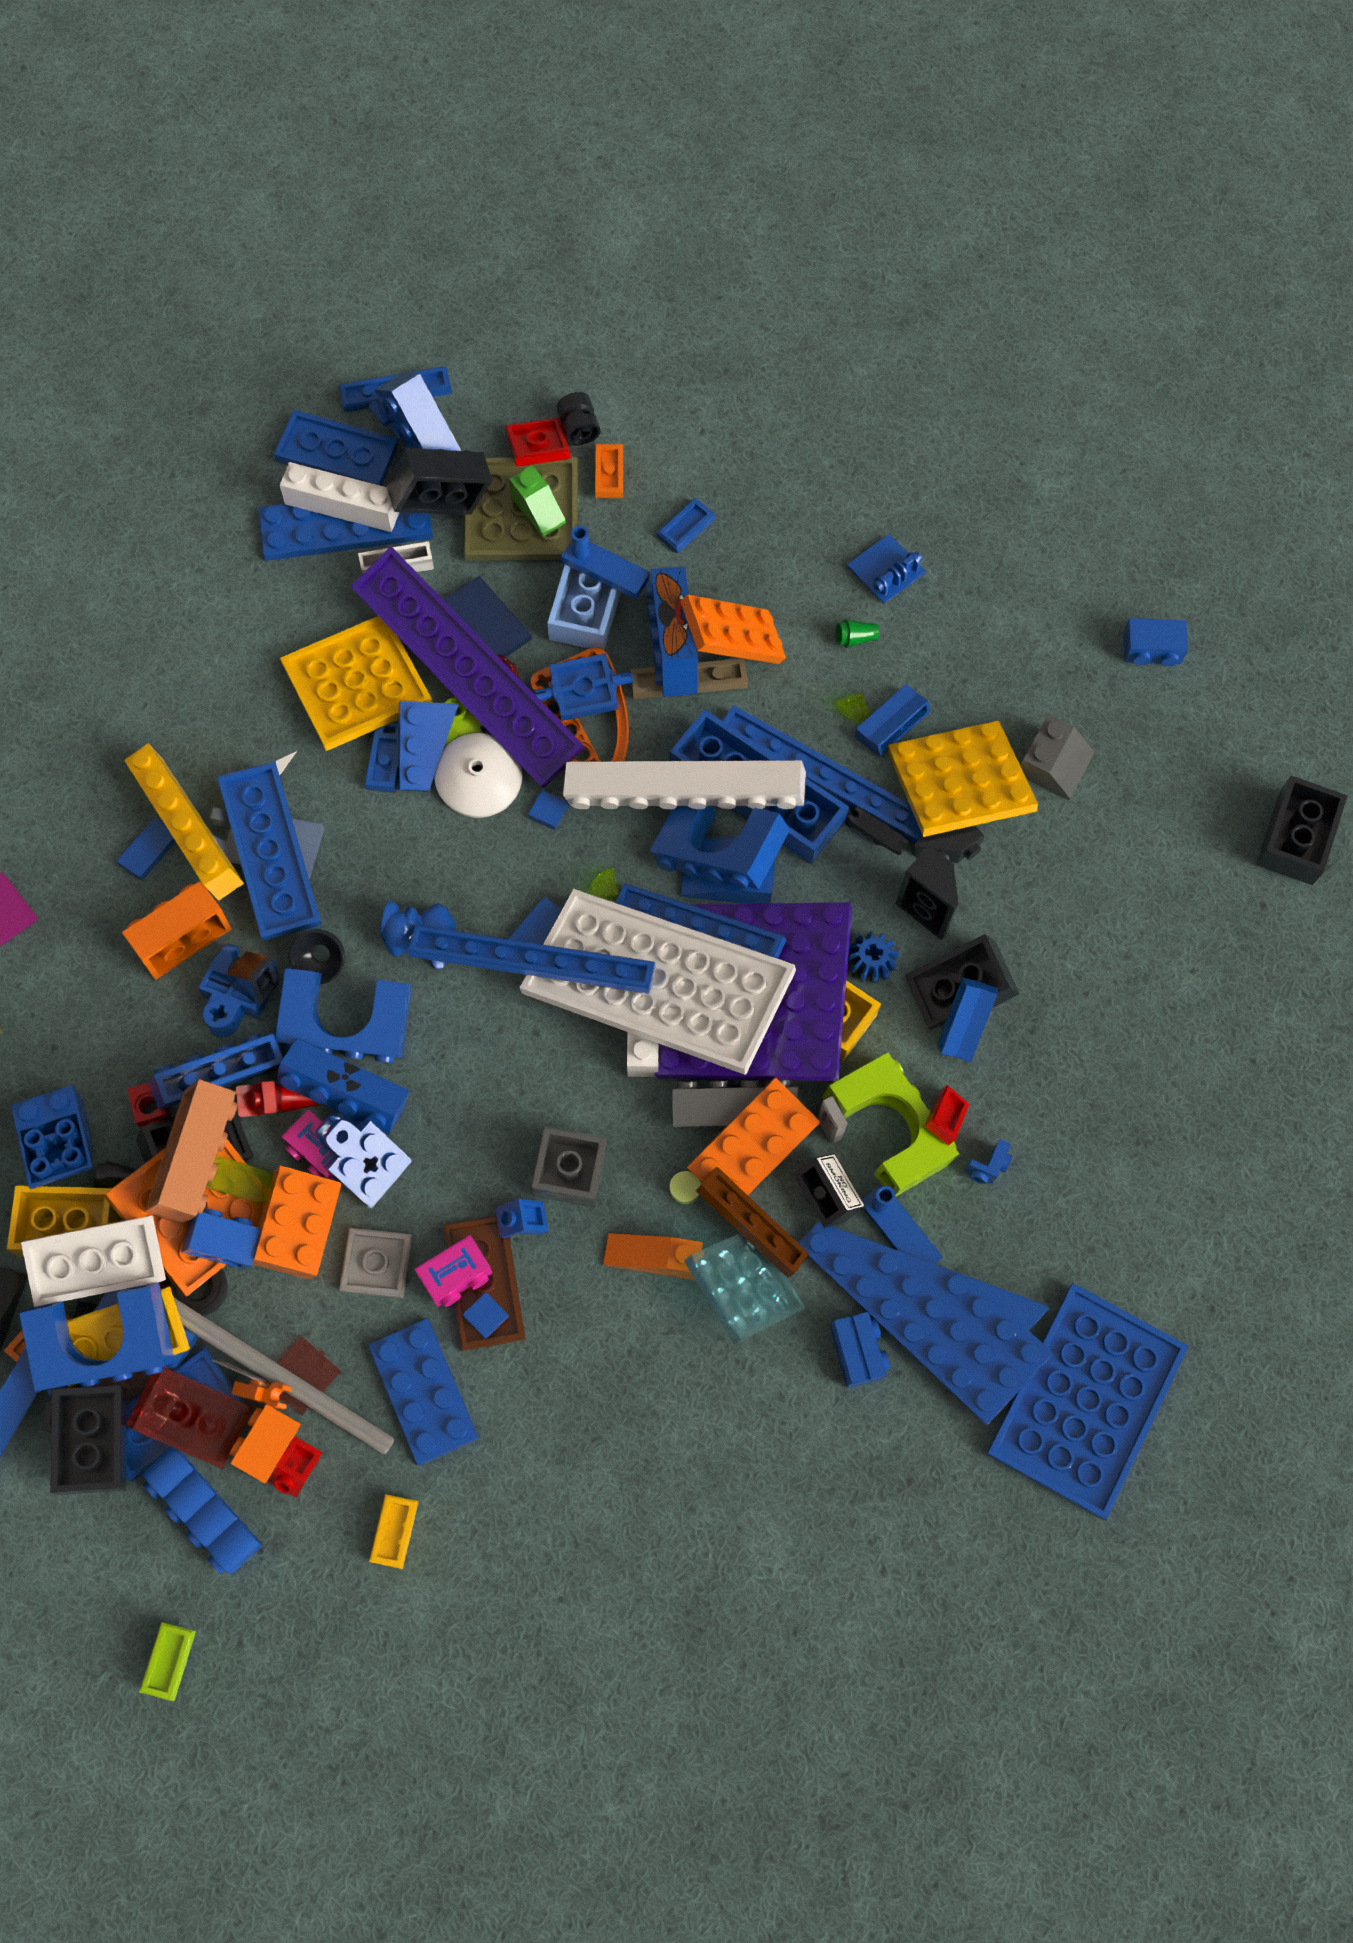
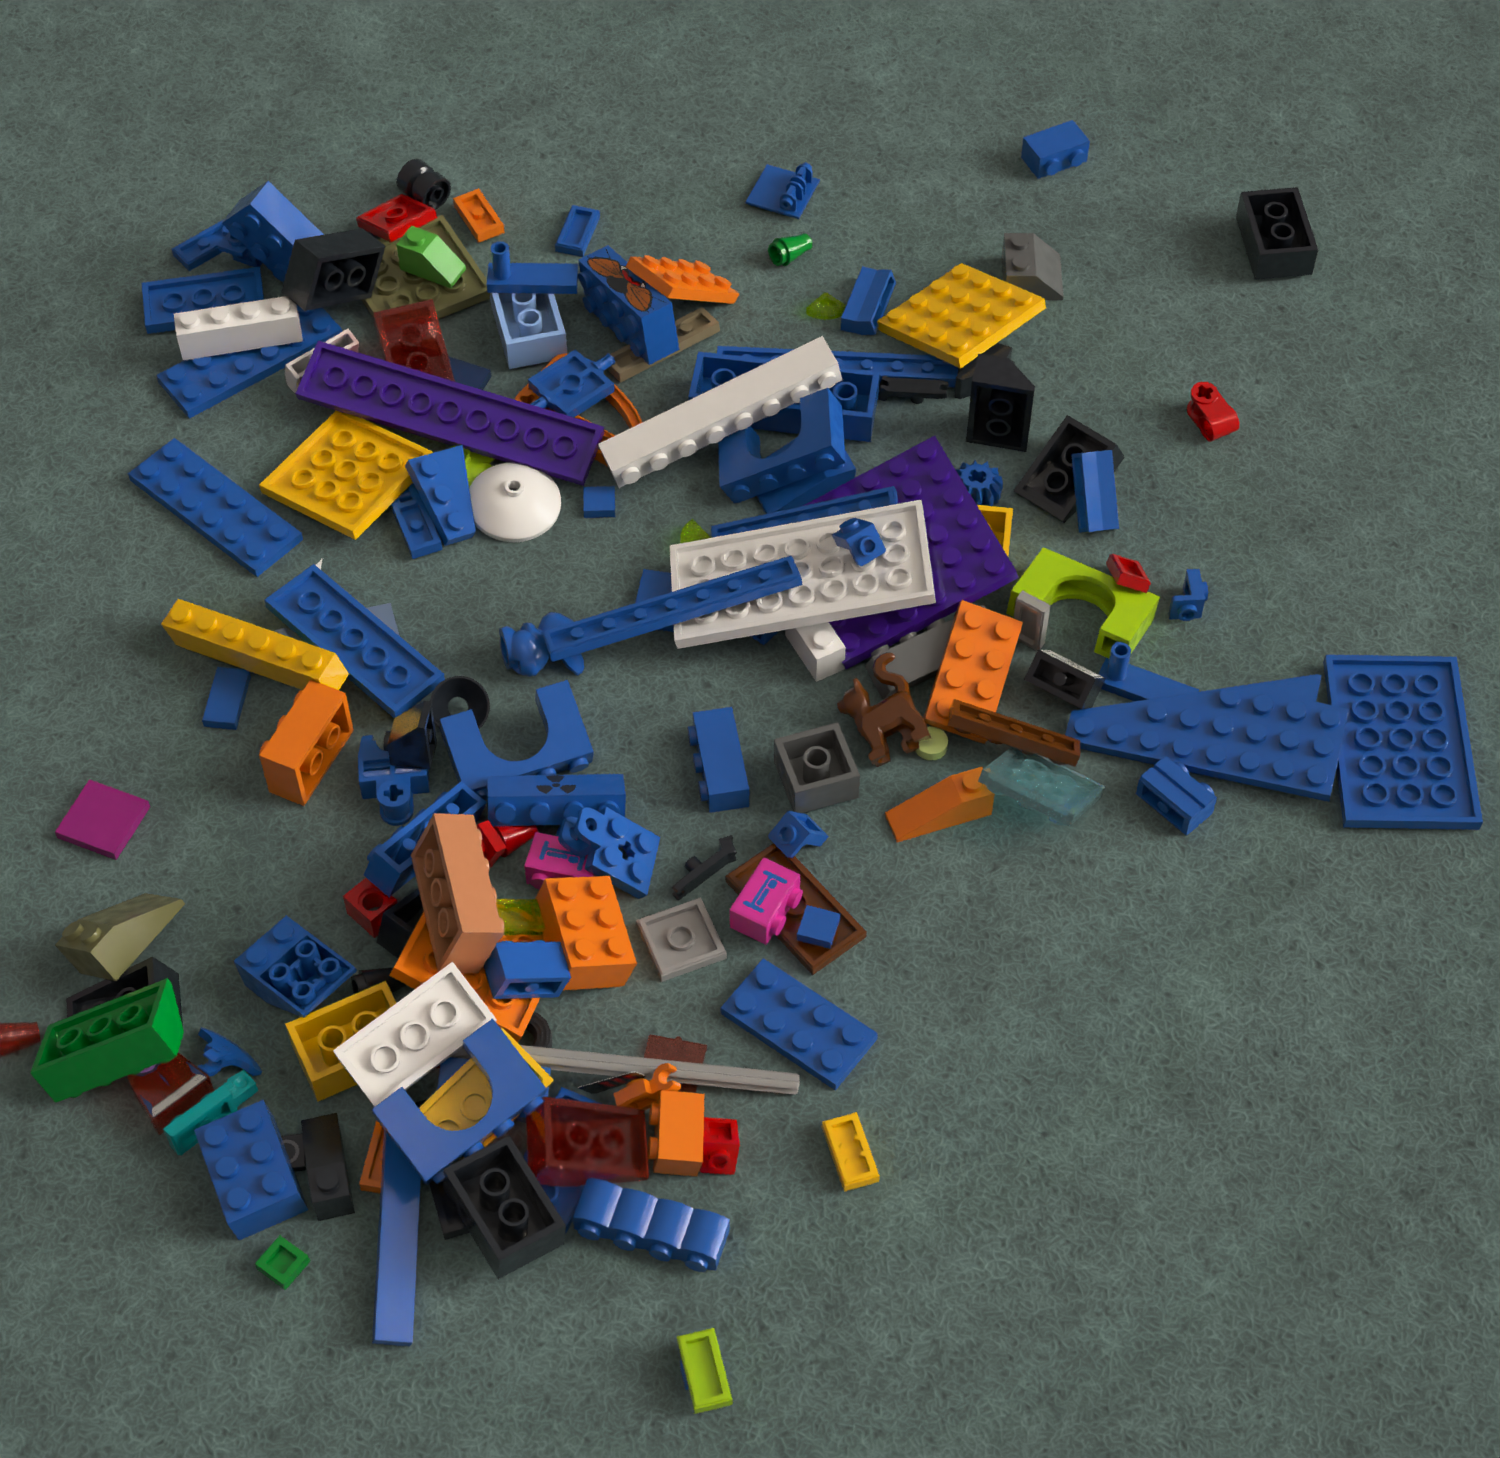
camera: 25 degrees left, 15 degrees down
(238, 660) = (215, 507): none -> blue plate
(427, 1209) = (702, 871): none -> black piece
(475, 584) = (413, 338): none -> clear red slope
(499, 1114) = (719, 760): none -> blue brick
(655, 1150) = (886, 718): none -> reddish brown animal
(715, 980) = (860, 539): none -> blue bracket
(1126, 991) = (1211, 412): none -> red piece

